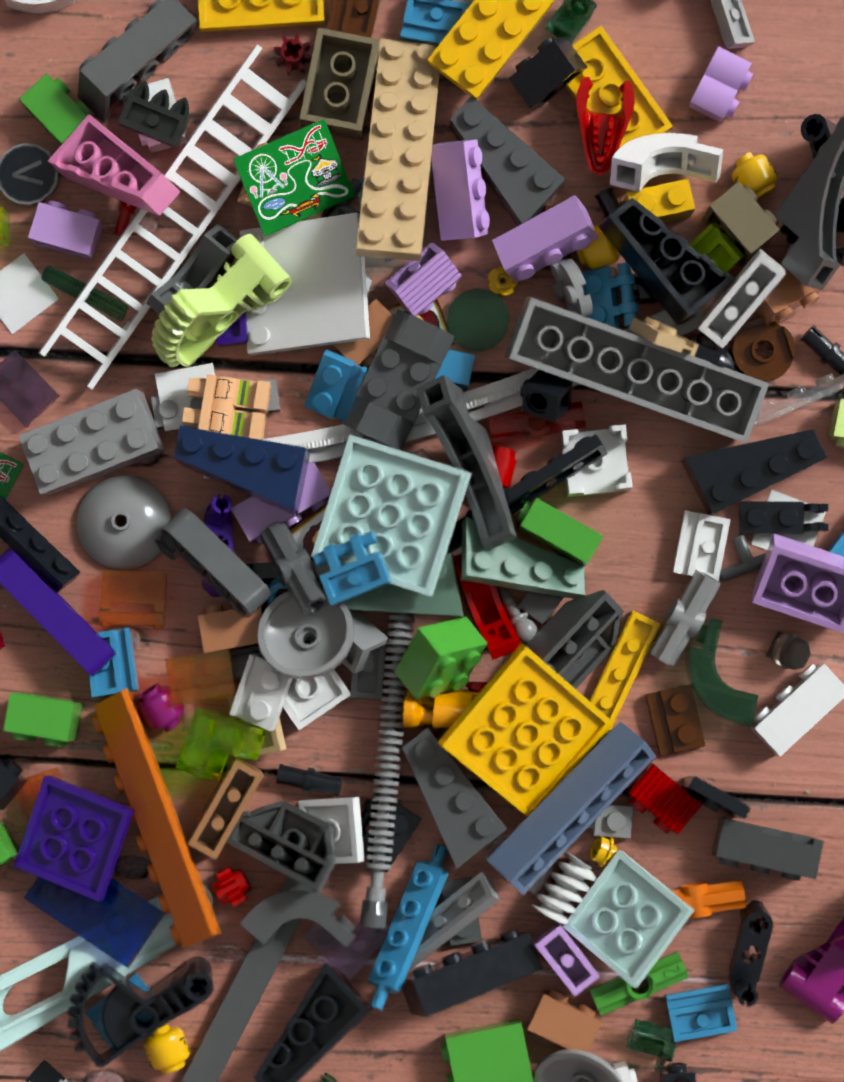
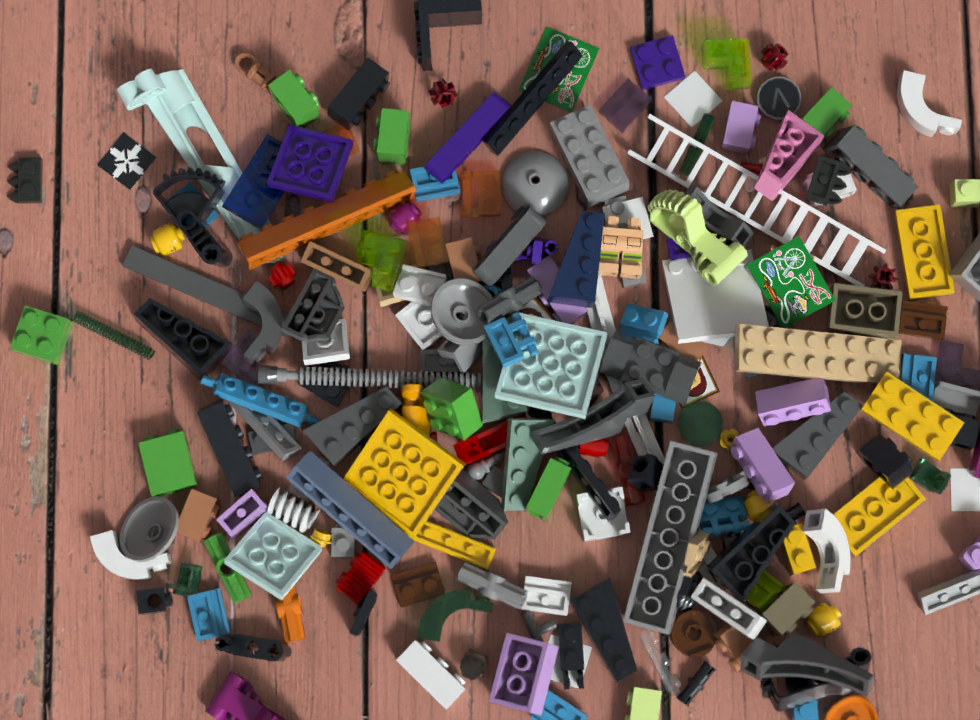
camera: 90 degrees right, 5 degrees down
(225, 527) = (534, 250): none -> dark purple plate
(309, 780) = (360, 325): black pin -> none
(424, 280) = (725, 381): lavender brick -> none
(601, 131) = (846, 502): red animal -> none
(720, 85) = (889, 590): lavender brick -> none
(767, 849) = (328, 654): dark grey wedge -> none

